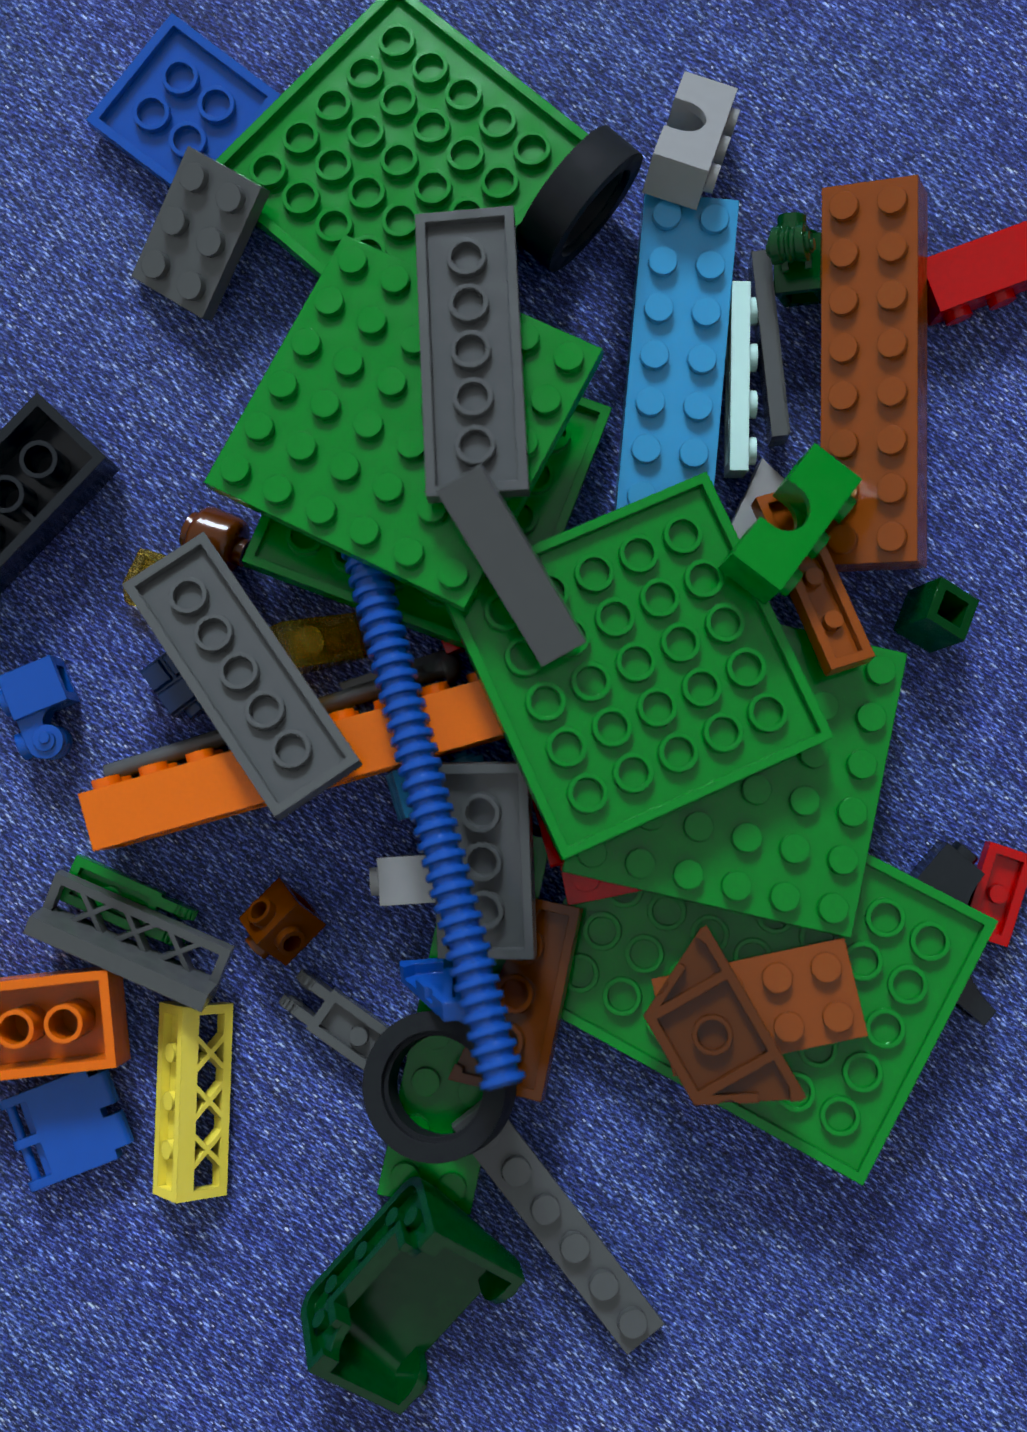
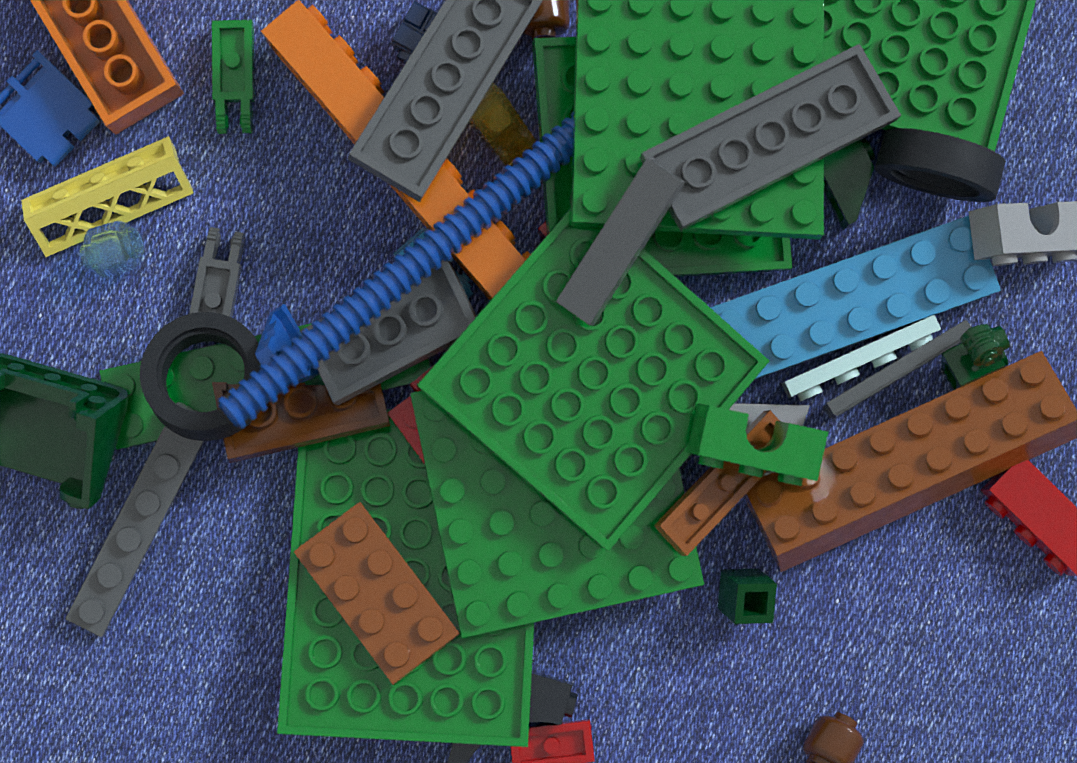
camera: 60 degrees right, 0 degrees up
(122, 955) = (192, 92): dark grey fence -> none
(252, 1120) = (112, 249): none -> clear light blue head
(280, 923) = (272, 199): reddish brown brick -> none
(353, 692) = (476, 172): dark grey bar -> none
(400, 880) = (344, 273): light grey brick -> none
(552, 304) = (847, 180): none -> dark green slope
(716, 1032) = (341, 566): reddish brown wing -> none

